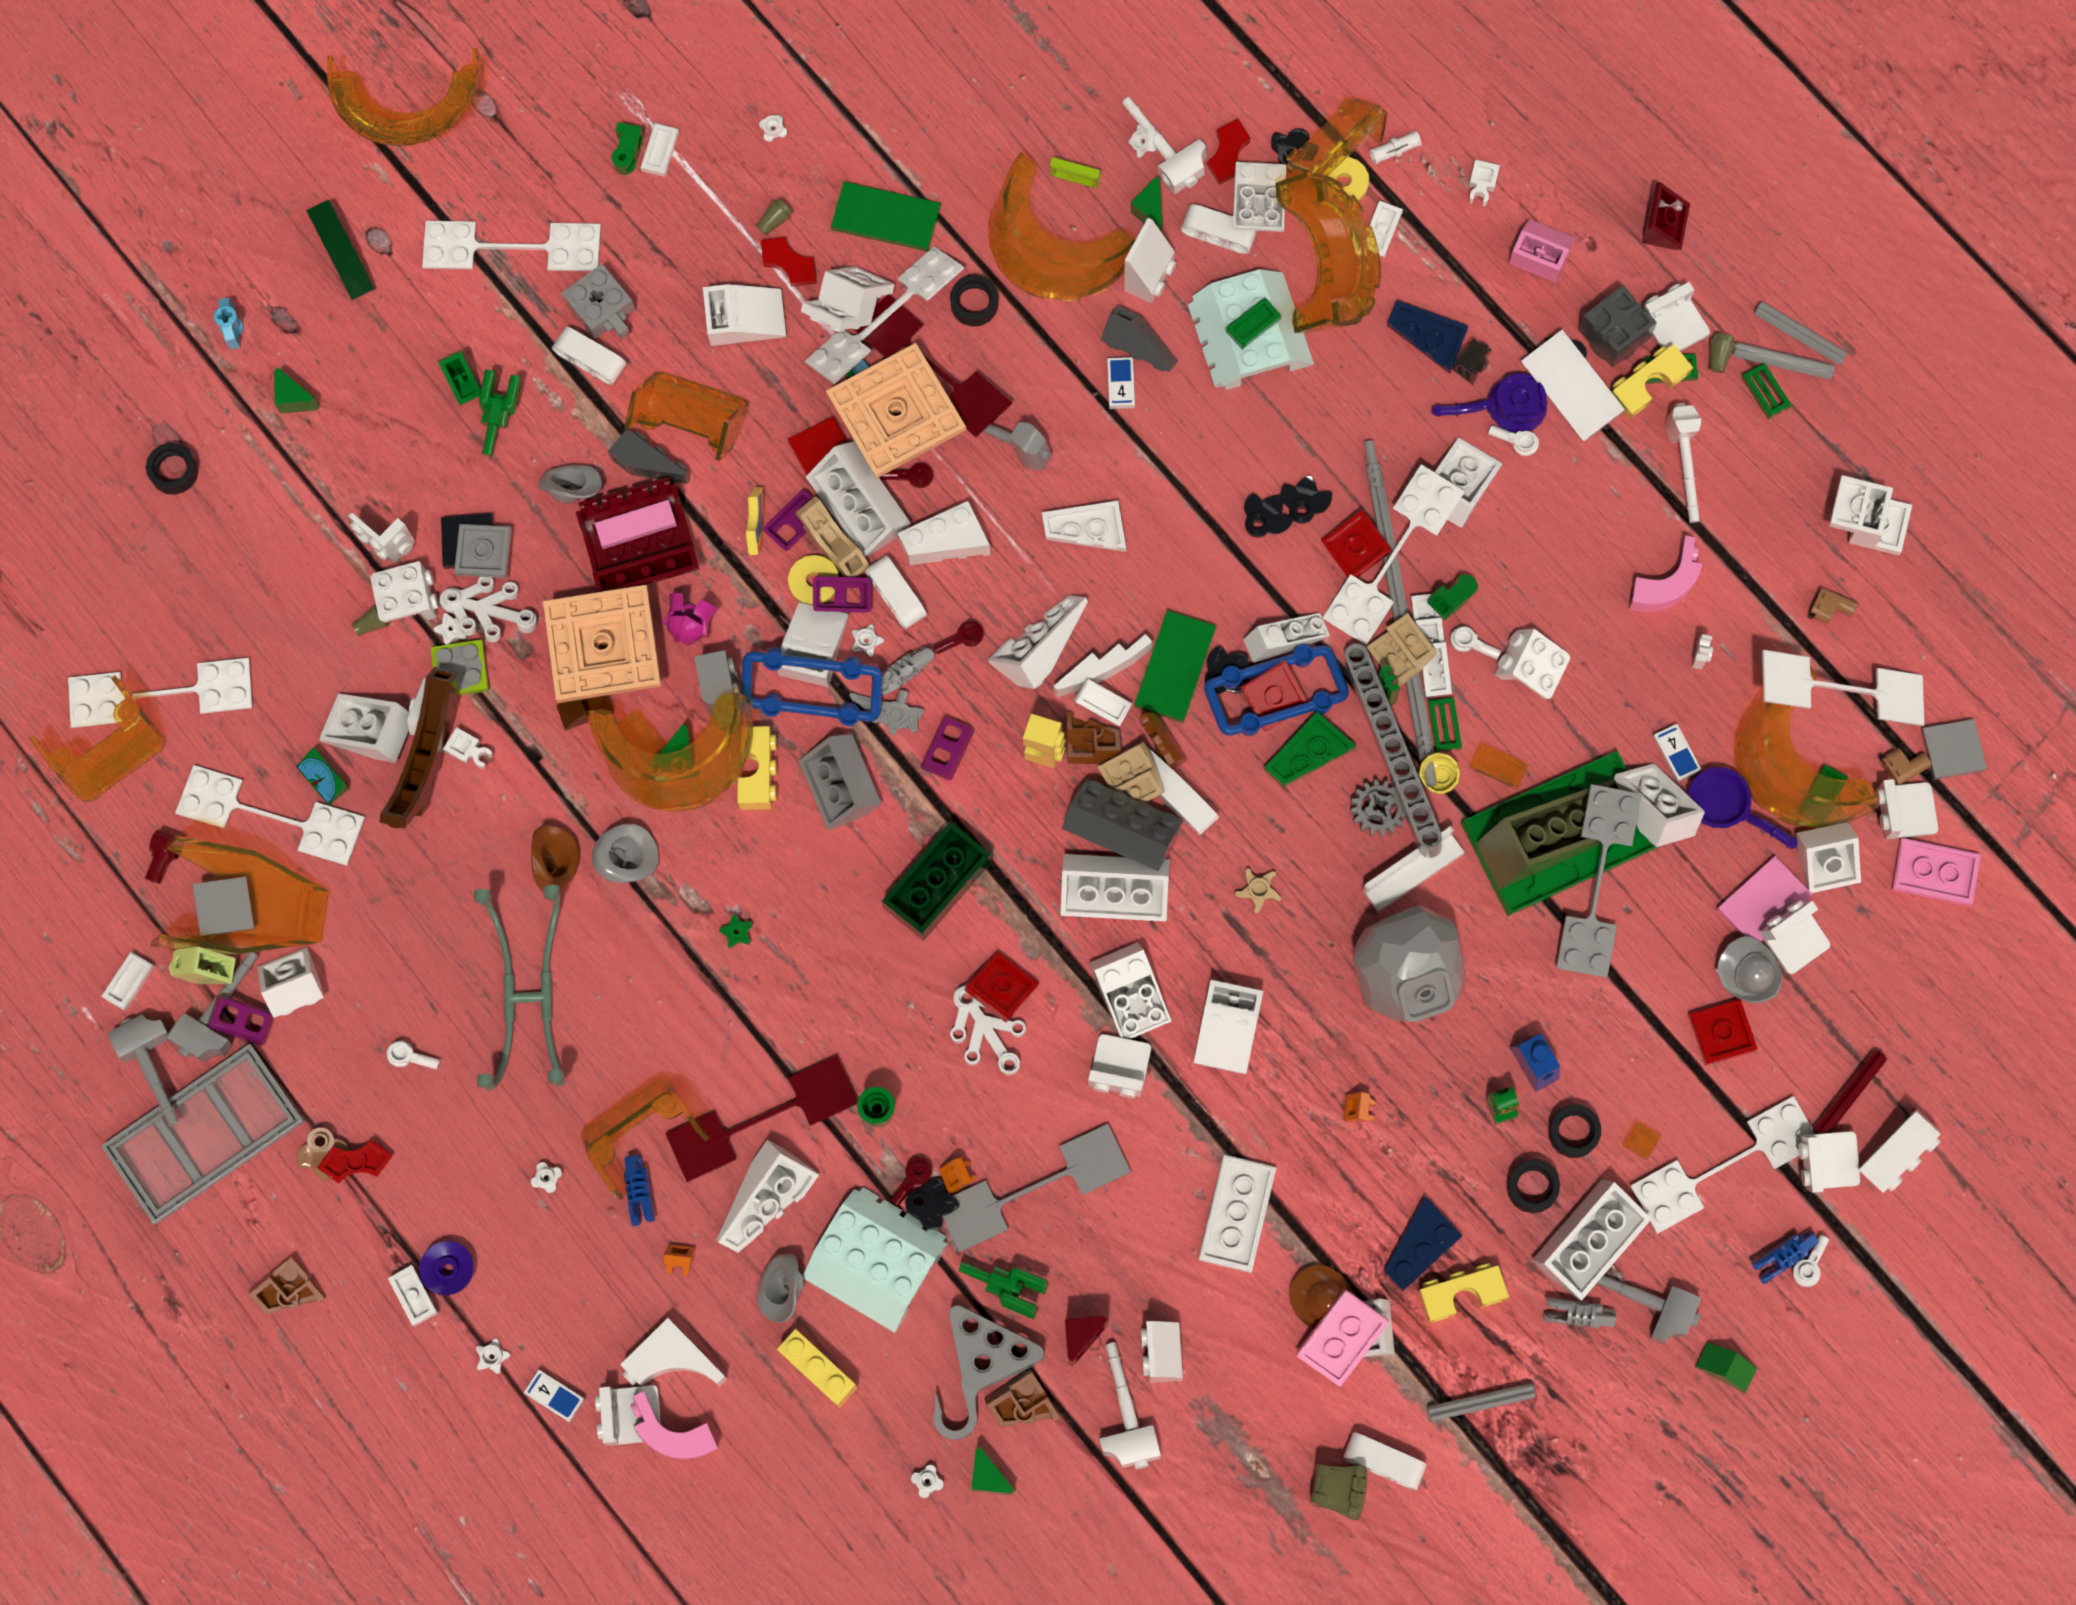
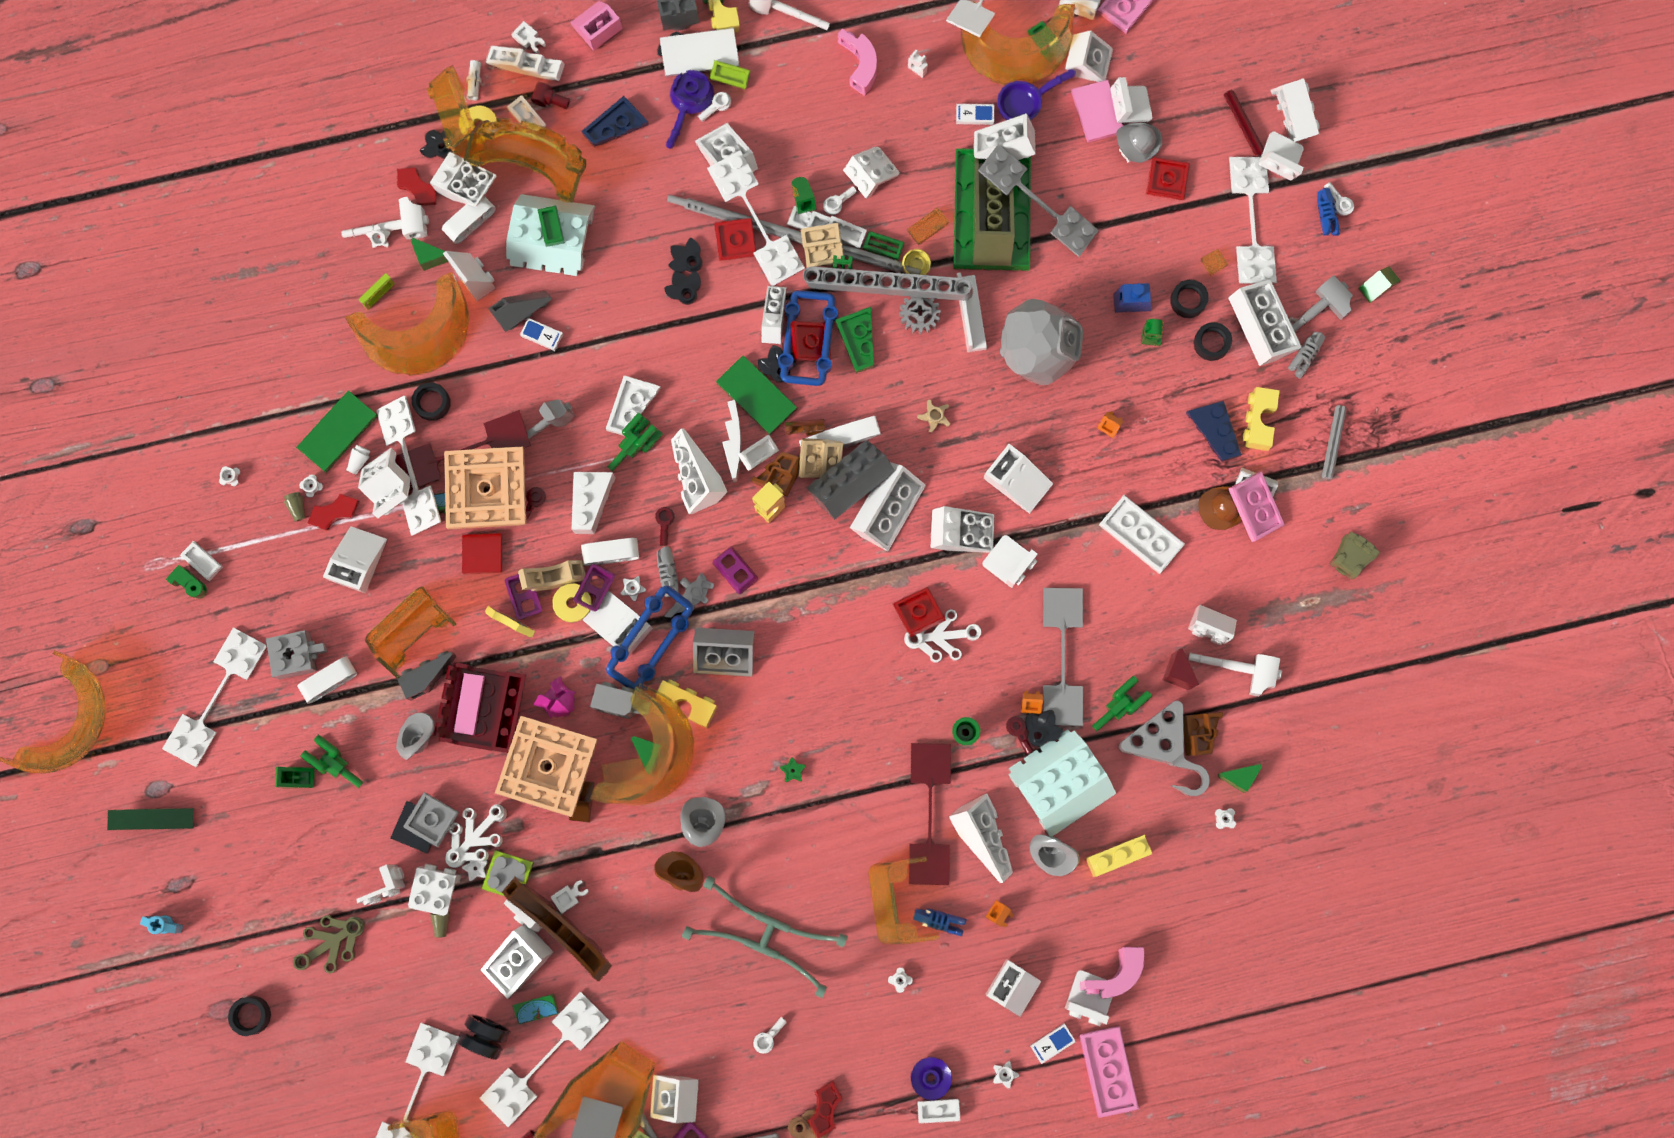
camera: 65 degrees left, 5 degrees up
(262, 731) = (483, 1036): none -> black wheel
(290, 396) = (241, 904): green slope -> none
(294, 515) = (332, 942): none -> olive plant
(551, 1480) = (1108, 1071): none -> bright pink tile
(597, 1314) = (1013, 987): none -> white slope
(667, 1352) = (1060, 952): white arch -> none
(807, 214) = (305, 485): none -> white plate
(857, 499) = (530, 545): white slope -> none
(865, 255) = (357, 459): none -> white cone
(936, 881) = (827, 619): dark green brick -> none
(1044, 553) = (634, 440): none -> green plant
(1384, 1461) = (1345, 520): white beam -> none
(1420, 236) = (544, 95): none -> dark red pin
(1448, 194) = (525, 63): none -> white slope
(1472, 360) = (648, 105): clear smoke brick -> none
(1564, 435) = (729, 74): none -> lime tile

